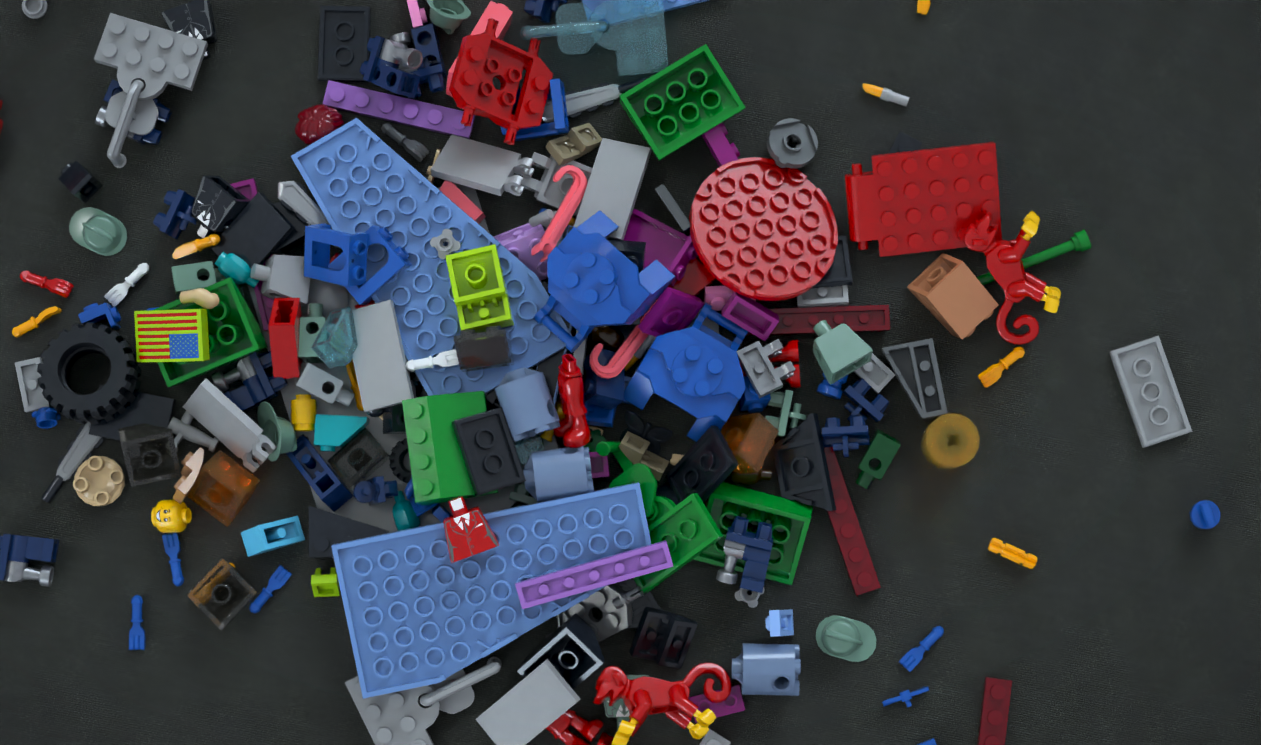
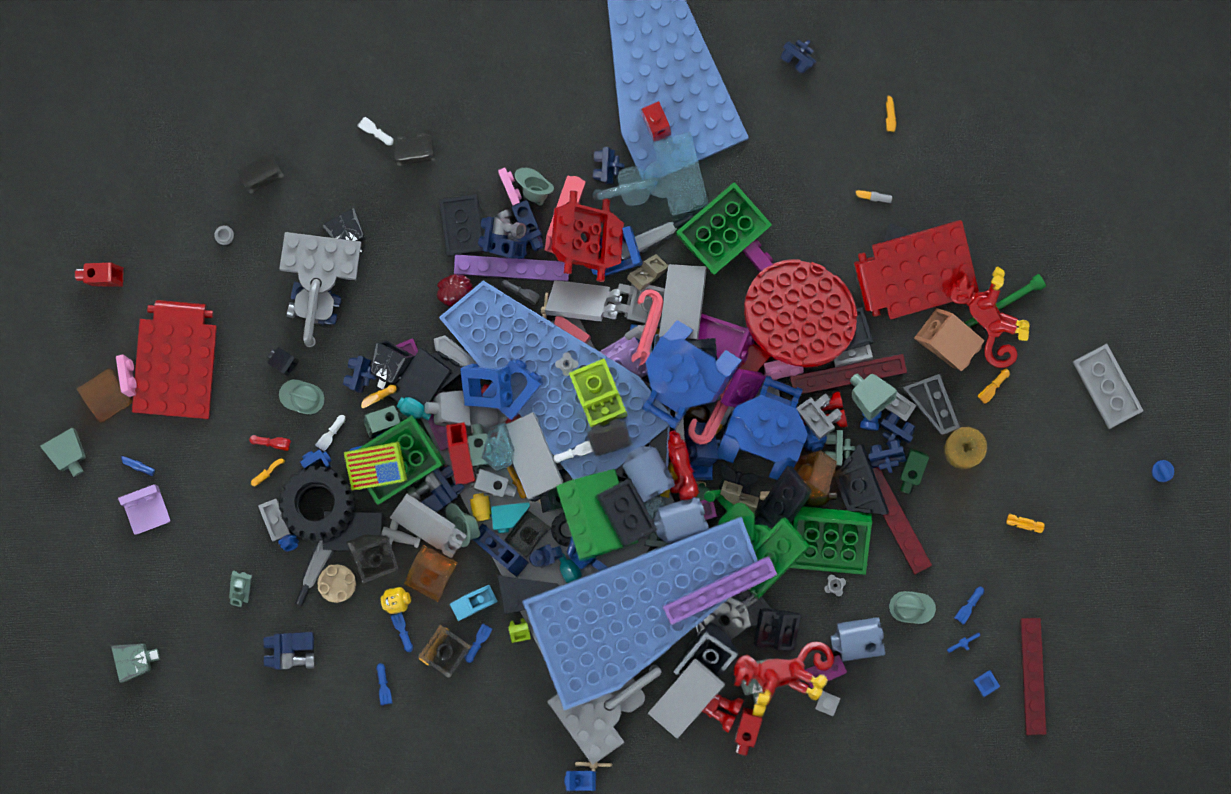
camera: 10 degrees left, 0 degrees up
(190, 471) = (405, 564): slope -> none
(201, 297) = (392, 433): tan arm -> none
(467, 531) = (621, 574): red torso -> none
(674, 208) = (731, 309): dark grey tile -> none
(750, 315) = (801, 379): magenta piece -> none
(750, 547) = (829, 551): dark blue hips -> none
(780, 622) = (862, 603): light blue plate -> none
(798, 132) = (805, 254): dark grey plate -> none

